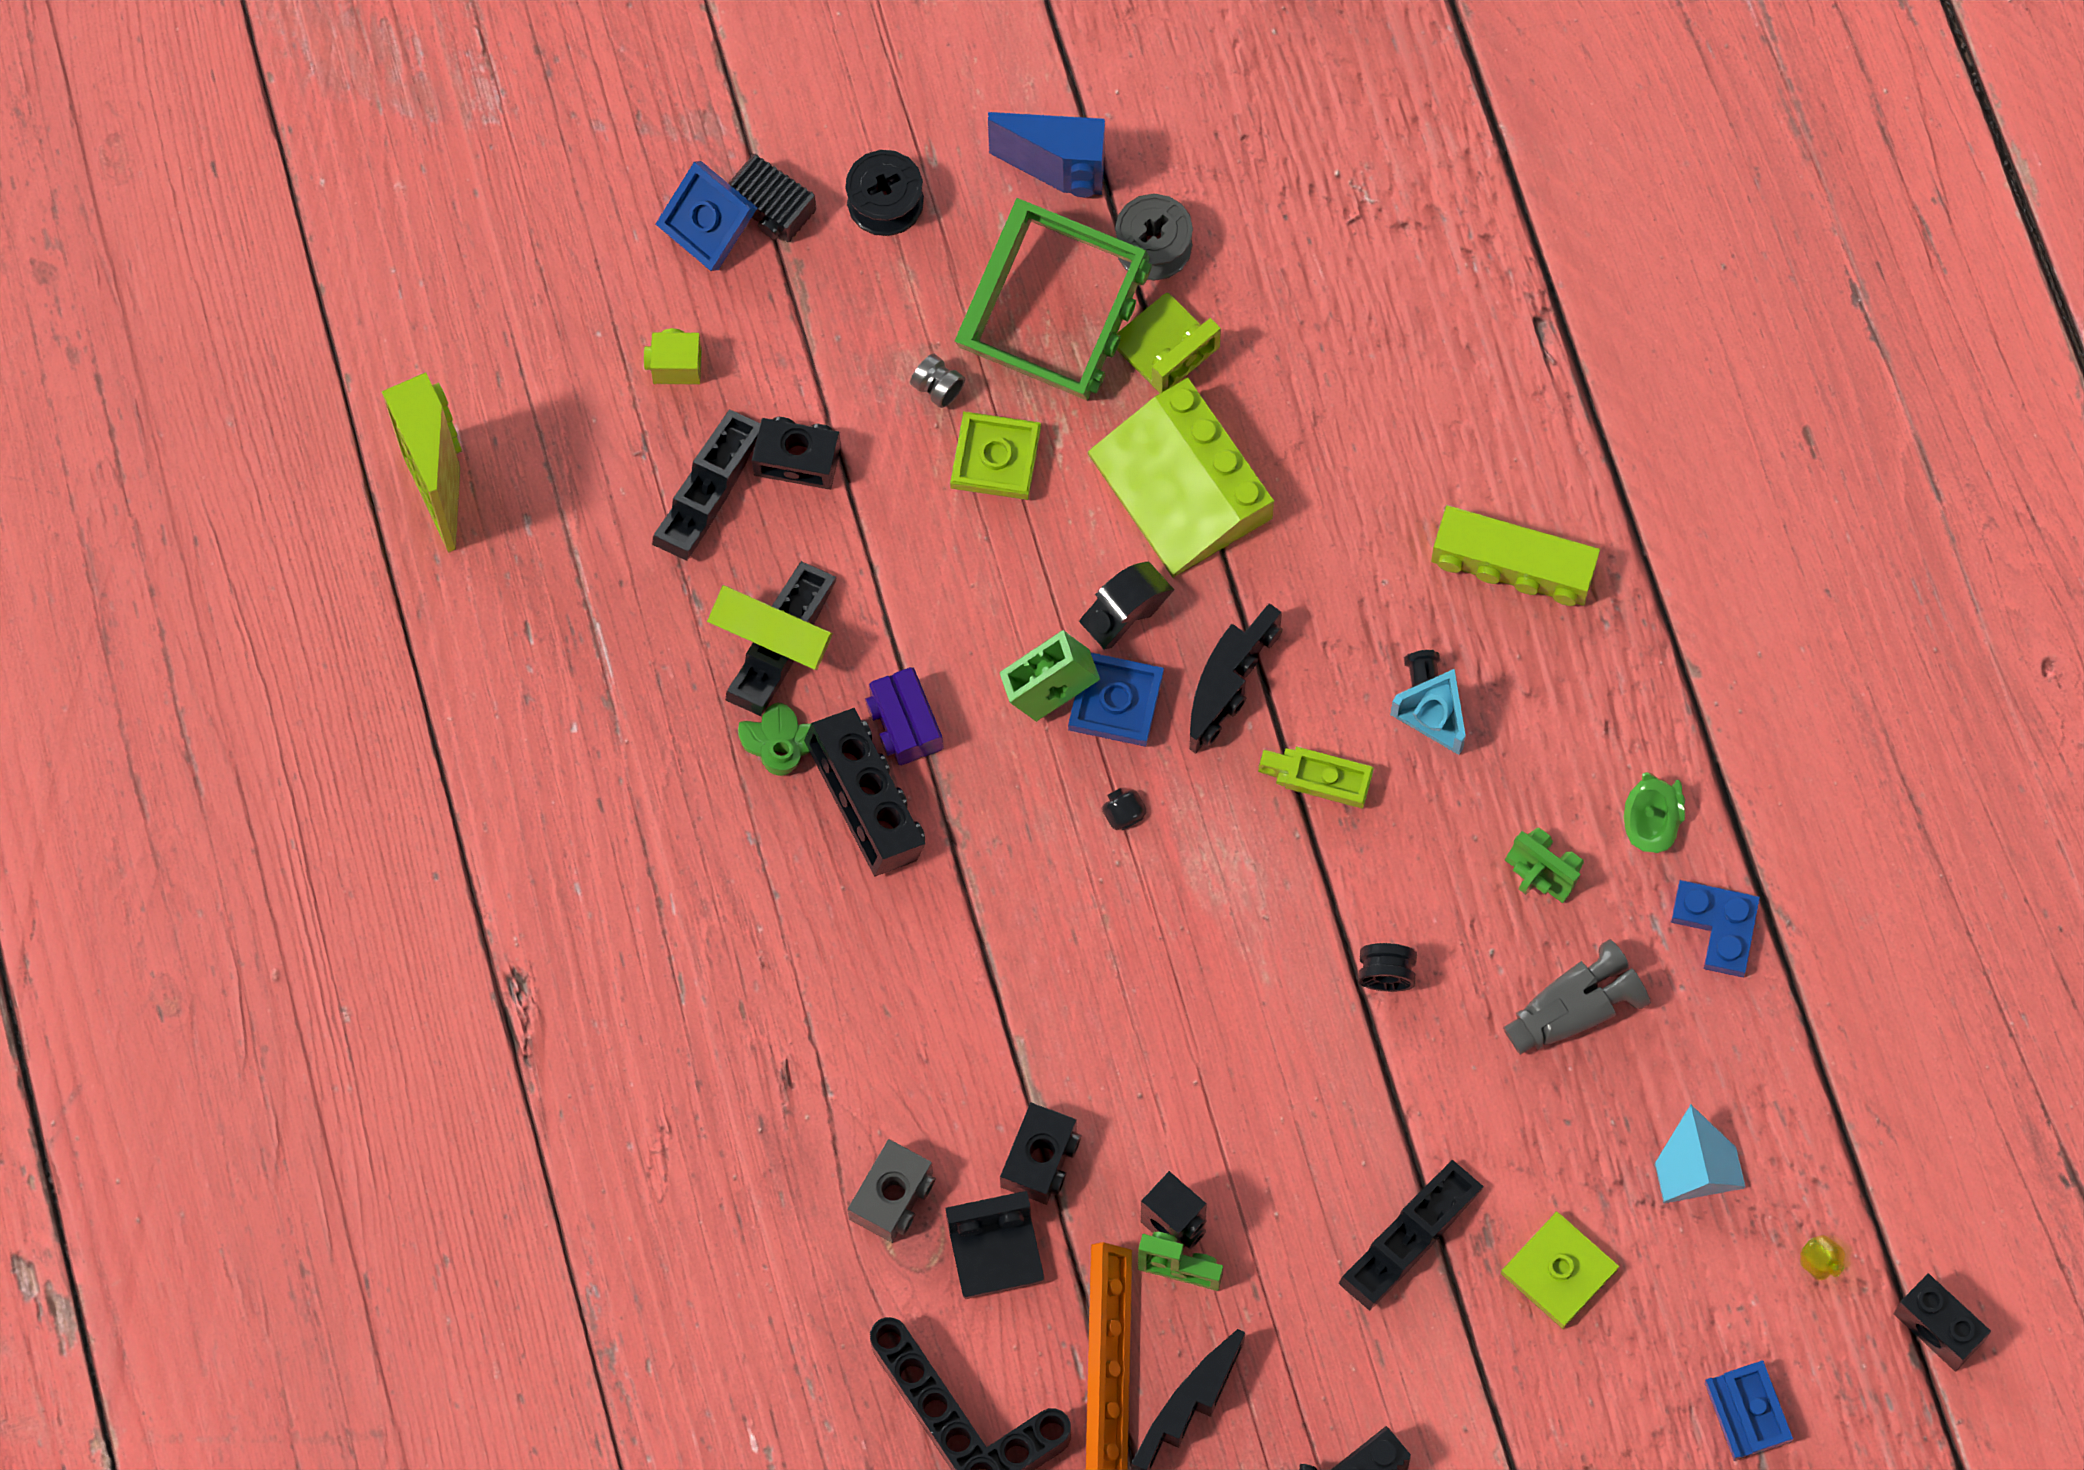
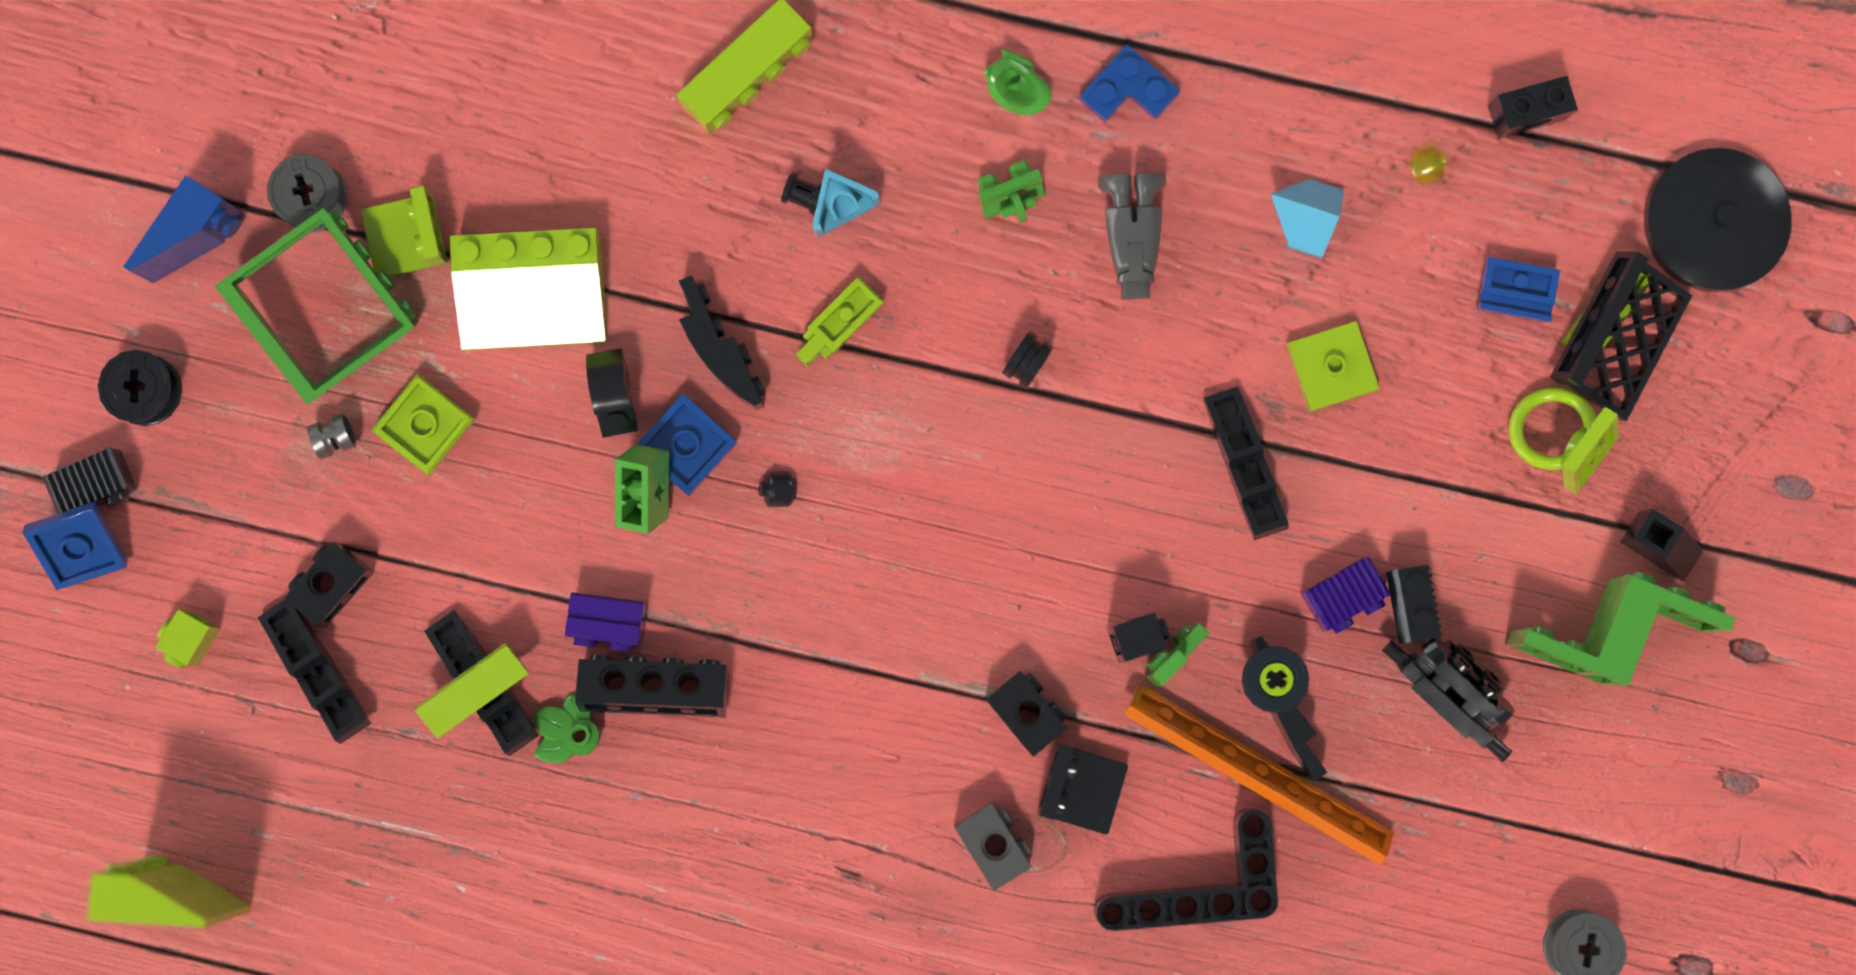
camera: 65 degrees left, 15 degrees up
(1227, 1354) = (1275, 698): none -> black bush
(1336, 1401) = (1346, 595): none -> dark purple brick

